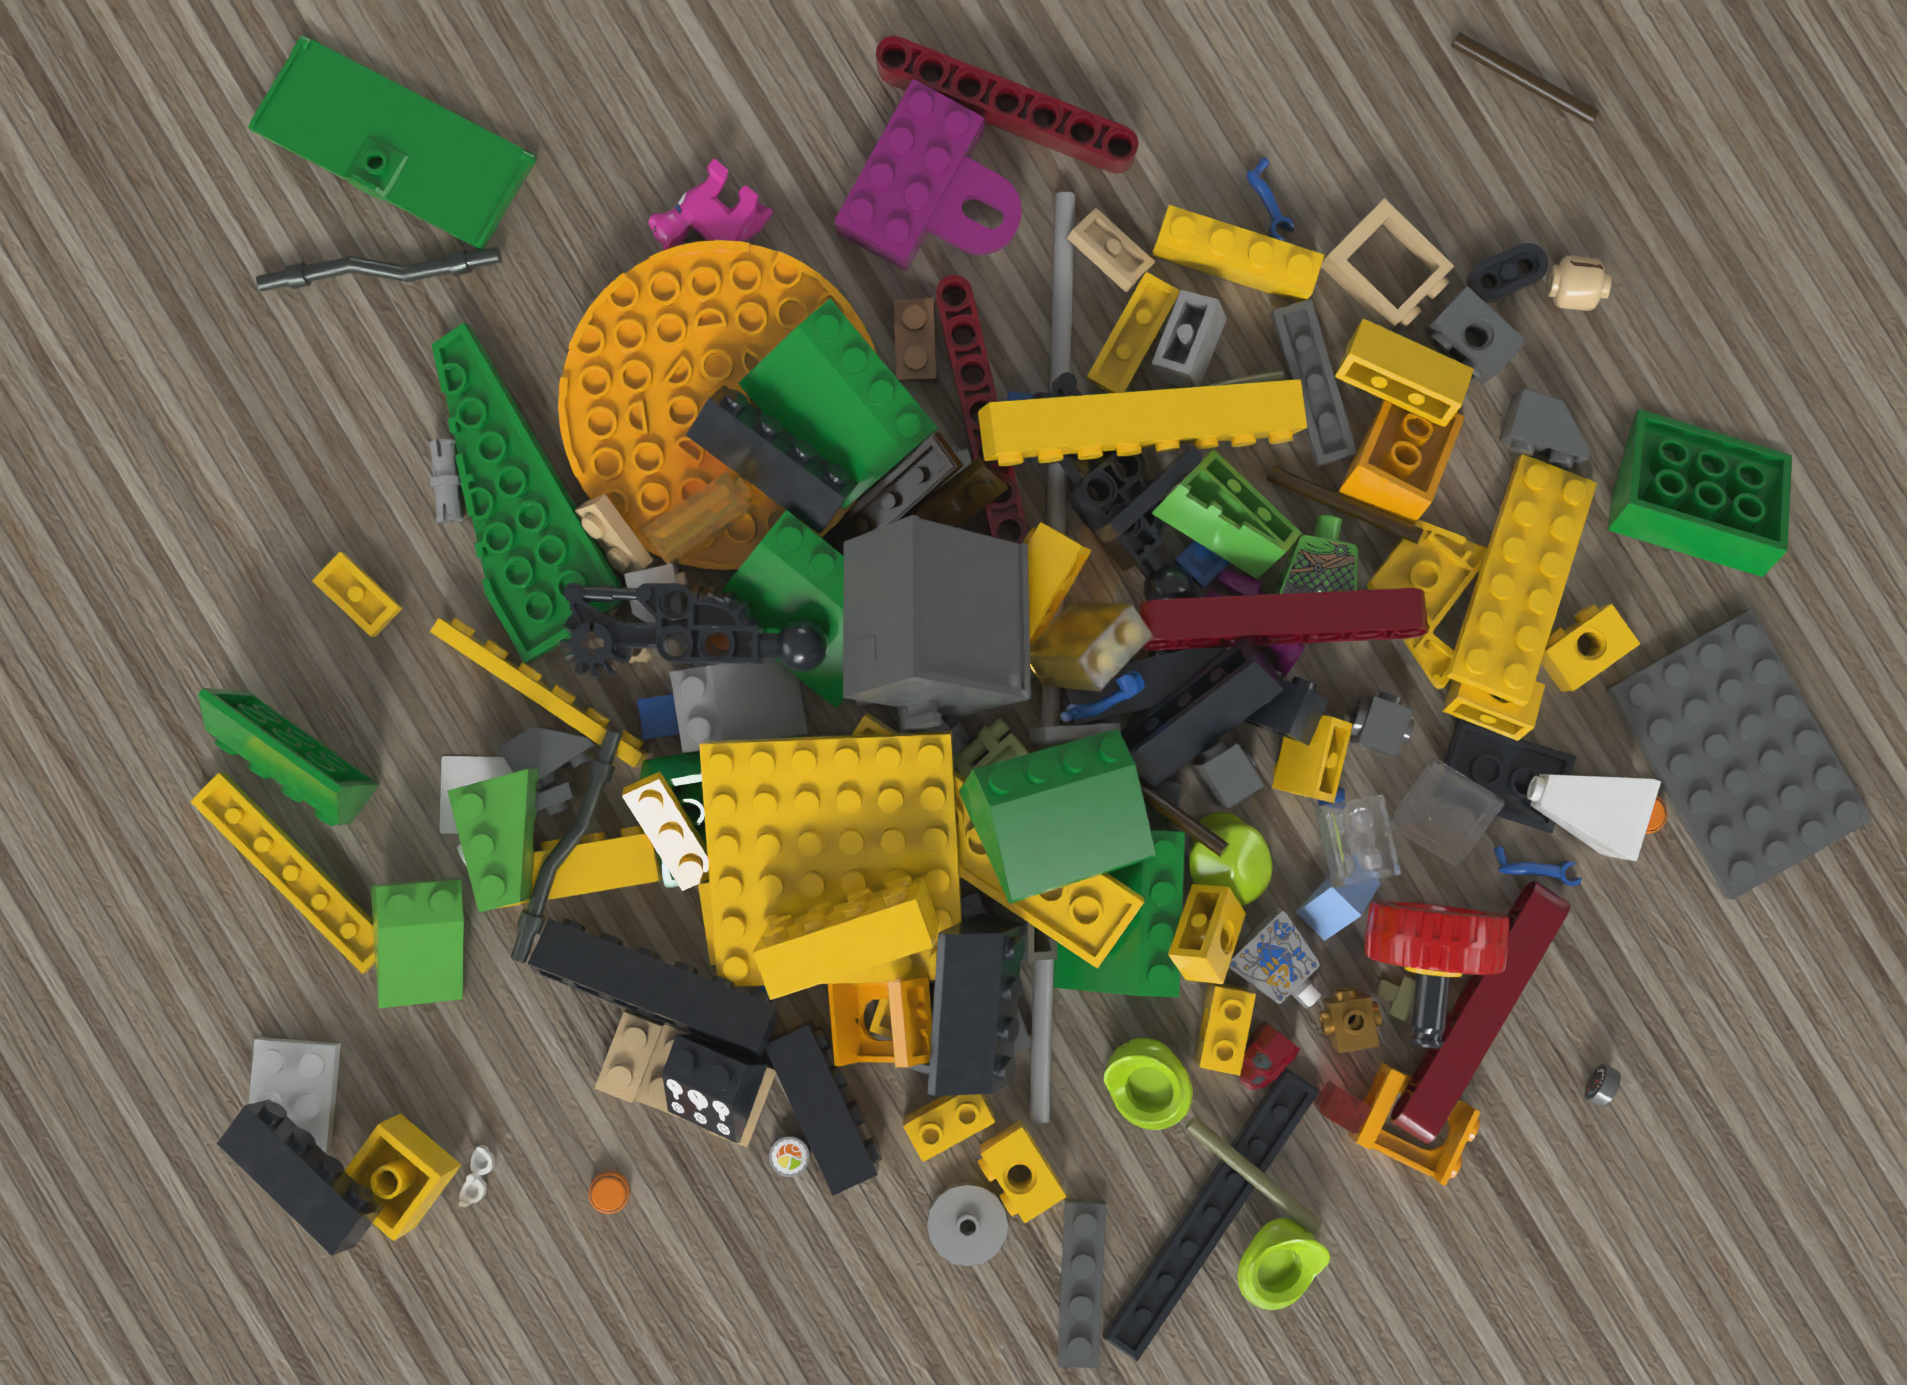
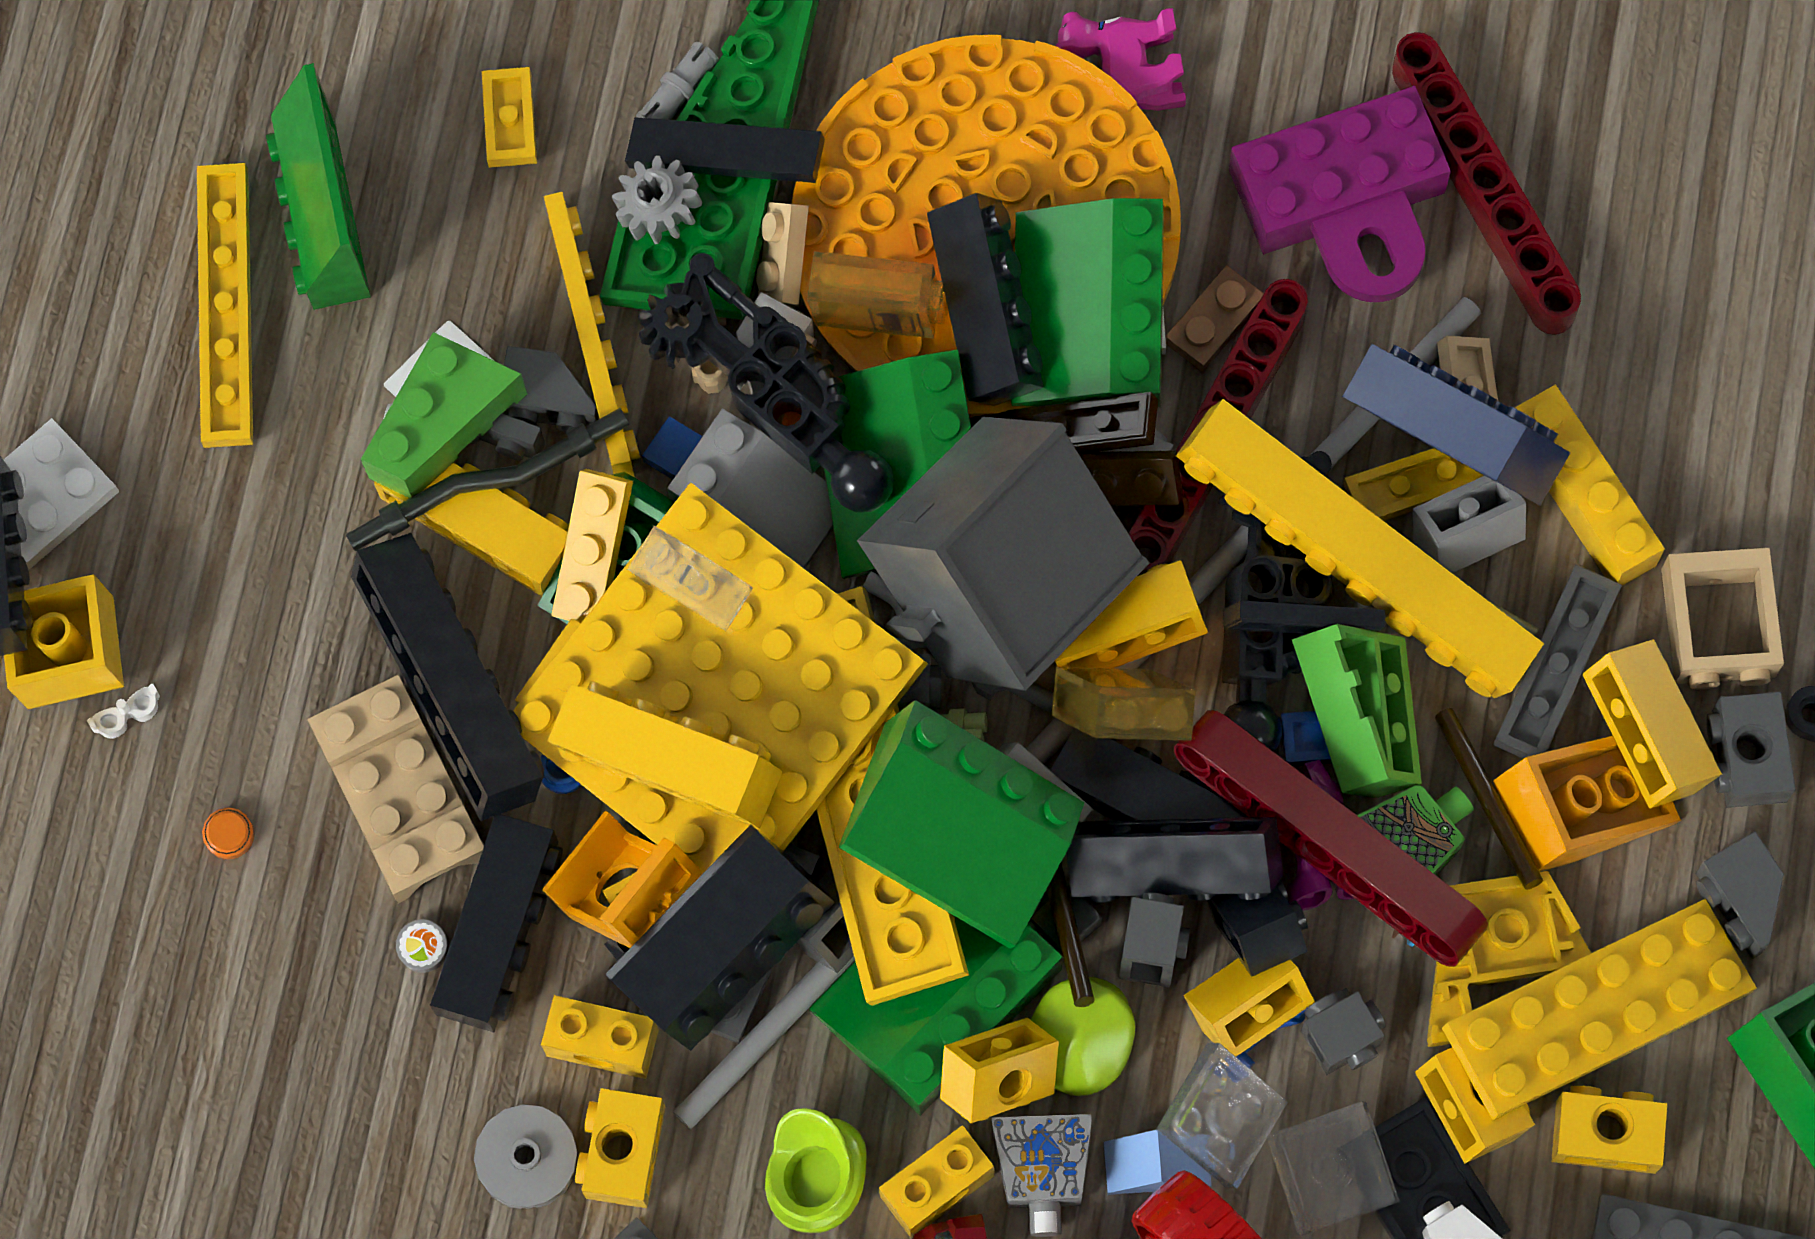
camera: 50 degrees right, 15 degrees down
(418, 941) = (277, 454): bright green slope -> none
(499, 556) = (657, 200): none -> light grey gear
(516, 500) = (727, 149): none -> black tile
(711, 1085) = (415, 802): black slope -> none
(758, 811) = (689, 578): none -> clear slope
(1129, 685) = (1131, 780): blue piece -> none
(1138, 286) = (1458, 421): none -> dark blue brick
(1268, 200) = (1660, 467): blue piece -> none

